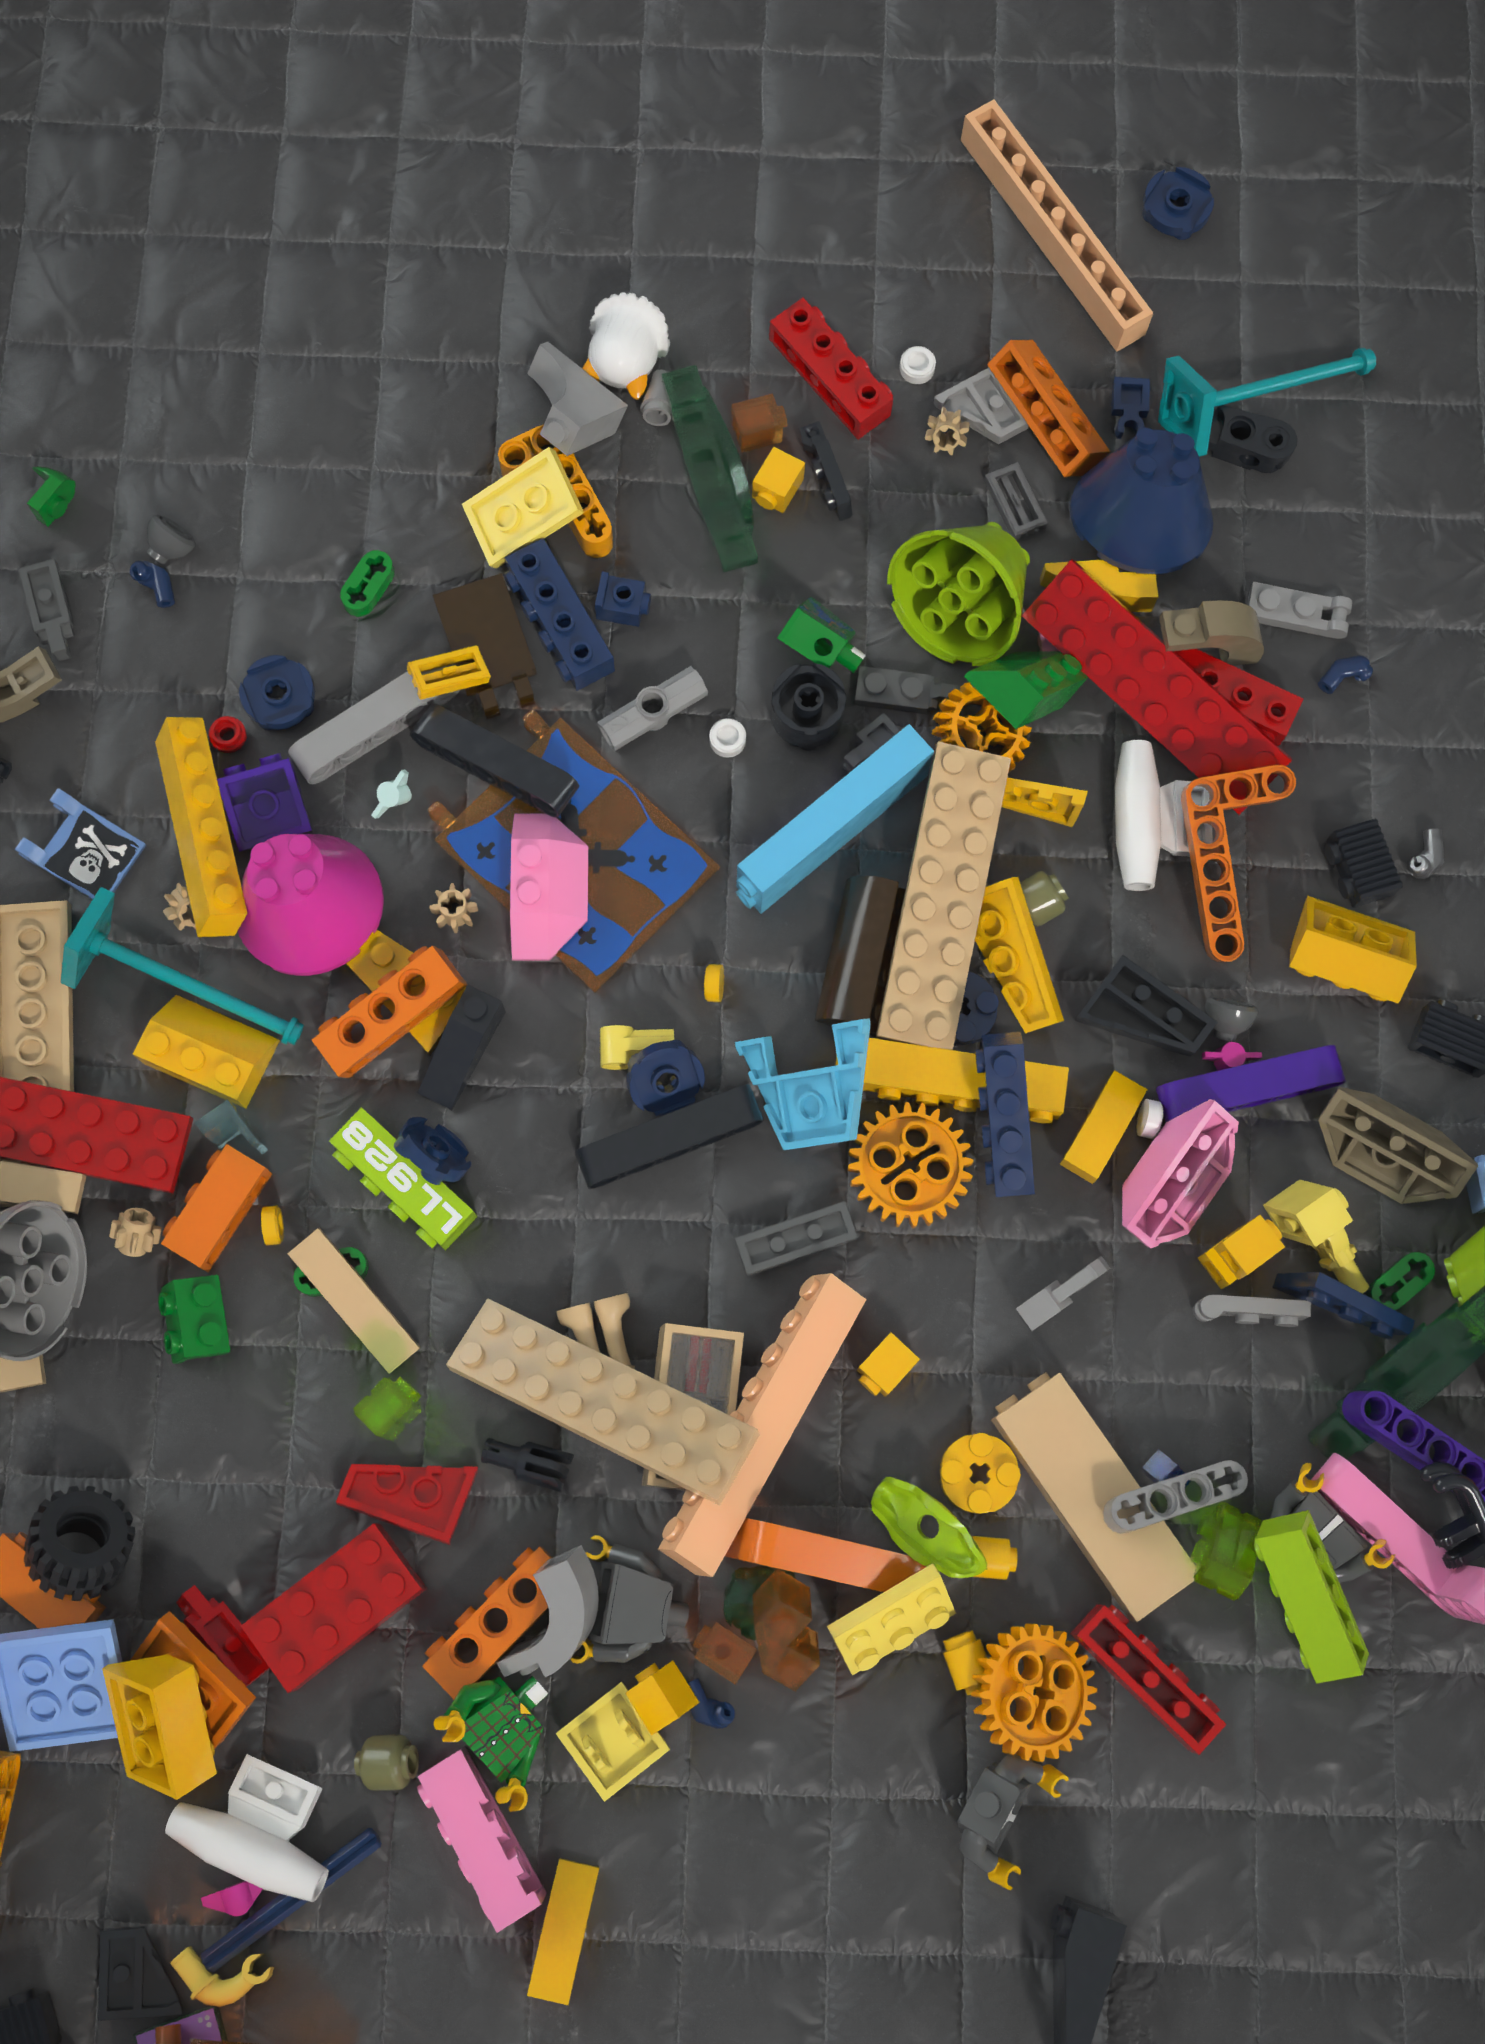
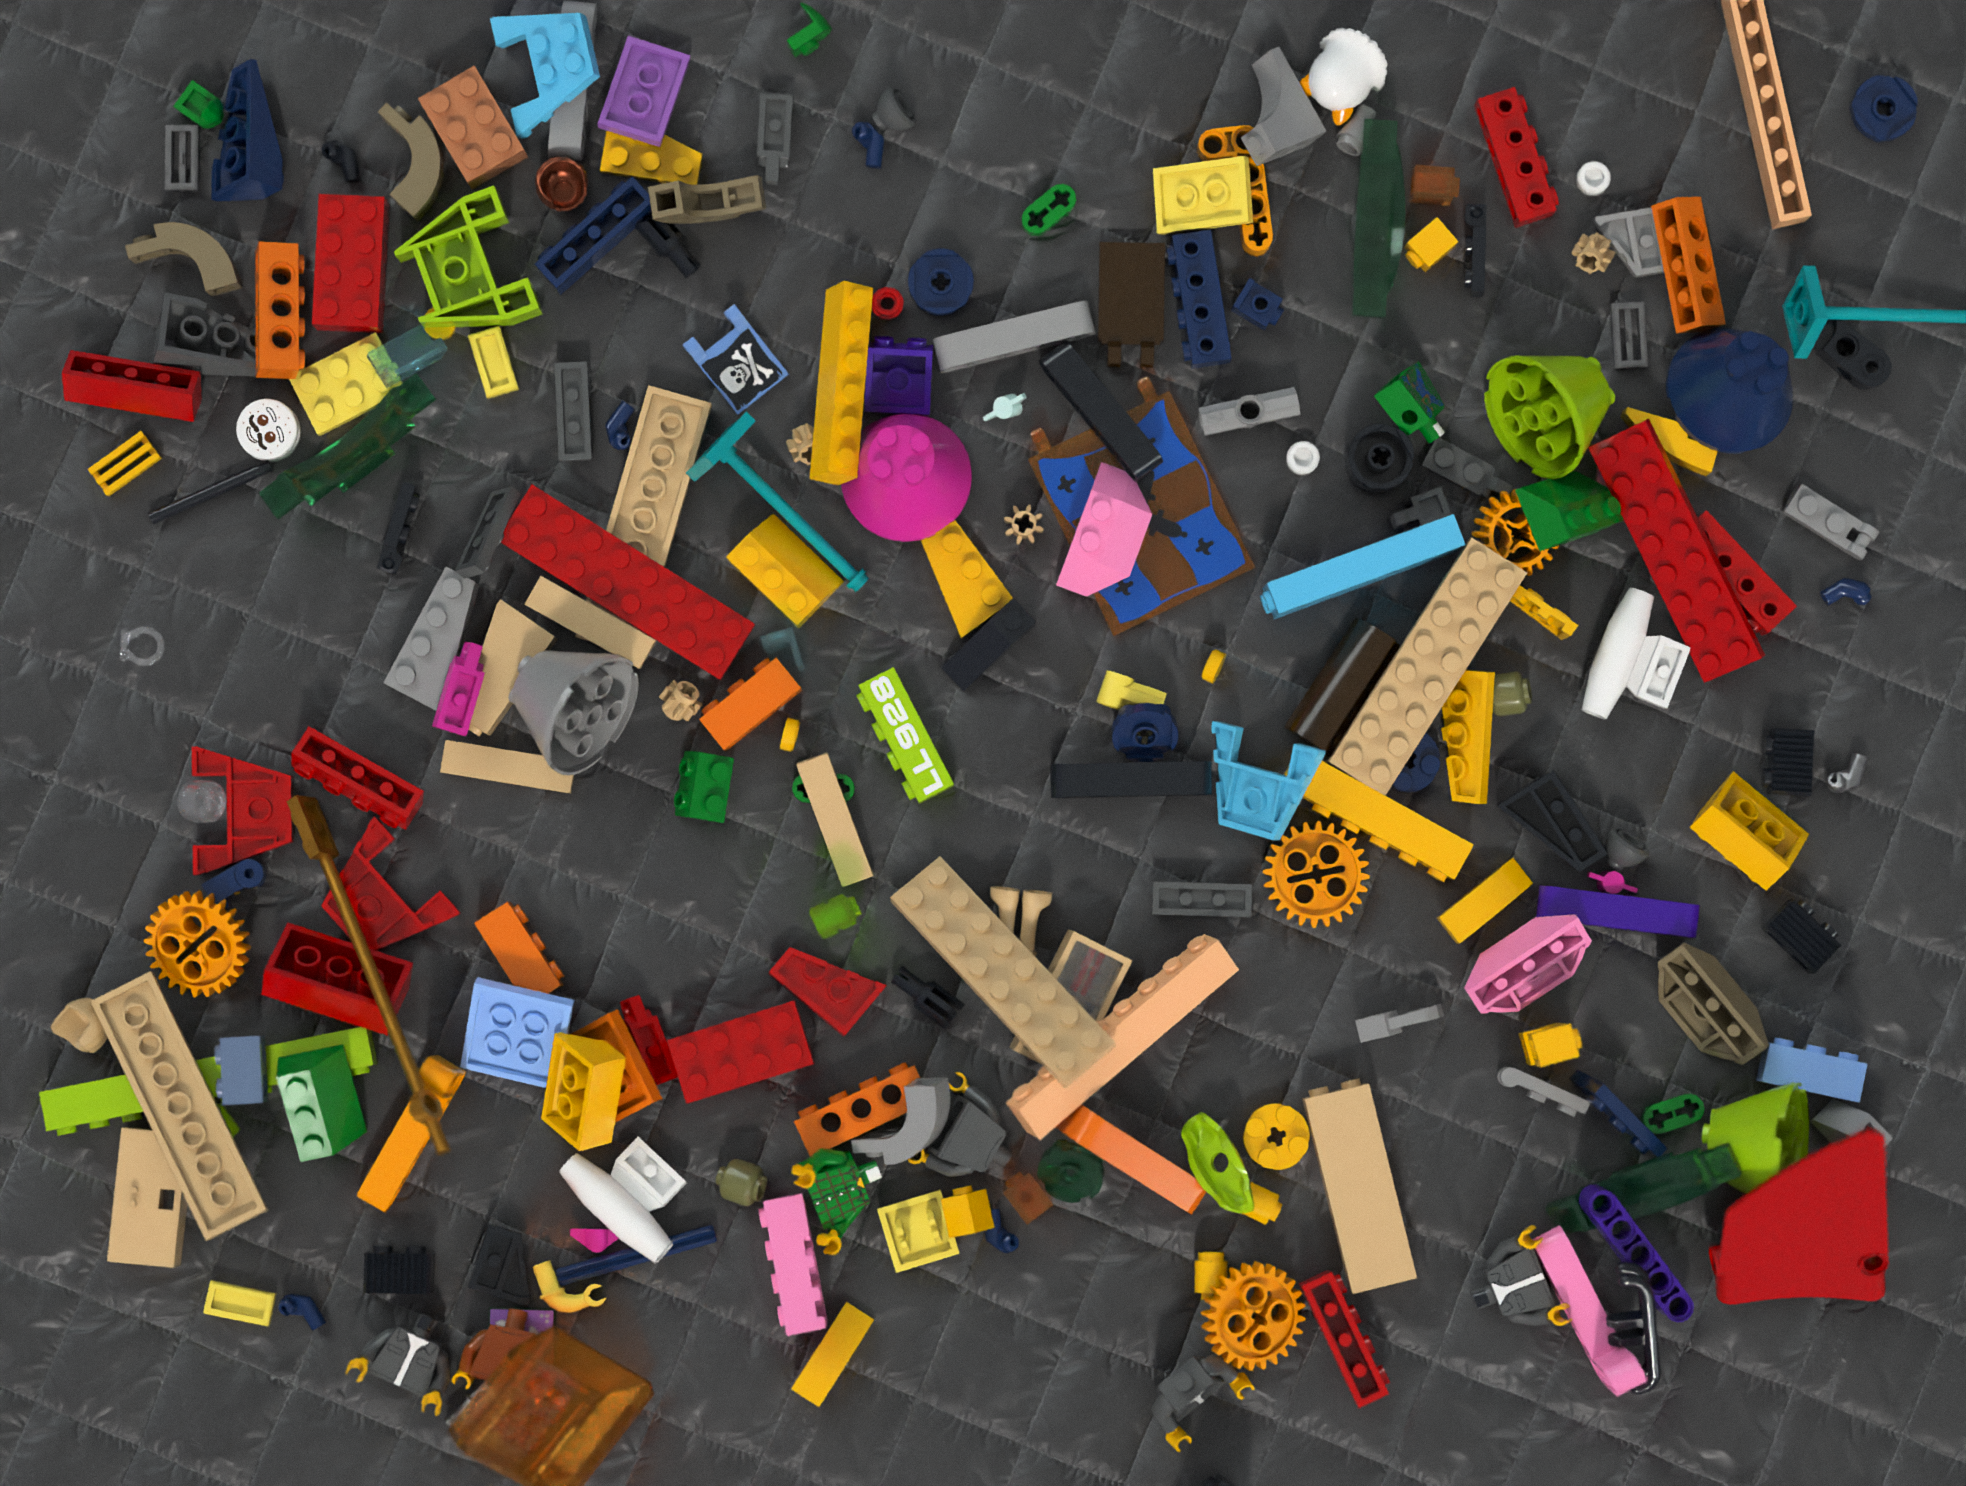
camera: 20 degrees right, 10 degrees up
(71, 1571) = (580, 915): black tyre -> none
(432, 1150) = (938, 723): dark blue plate -> none
(441, 985) = (993, 587): orange brick -> none
(452, 677) = (1063, 321): yellow tile -> none
(784, 1641) = (1077, 1198): clear orange brick -> none
(886, 1366) = (1235, 1027): yellow brick -> none
(892, 1620) = (1165, 1222): light yellow plate -> none
(1008, 1114) = (1408, 865): dark blue brick -> none
(1130, 402) = (1763, 281): dark blue plate -> none
(1149, 1119) = (1524, 908): white tile -> none
(1161, 1468) = (1422, 1192): clear blue piece -> none
(1176, 1498) = (1421, 1208): light grey beam -> none
(1215, 624) = (1756, 524): dark tan arch -> none
(1218, 850) = (1668, 709): orange beam -> none
(1227, 1551) = (1444, 1267): clear neon green brick -> none
(1311, 1597) = (1494, 1326): lime brick -> none
(1318, 1218) = (1621, 1040): light yellow brick -> none

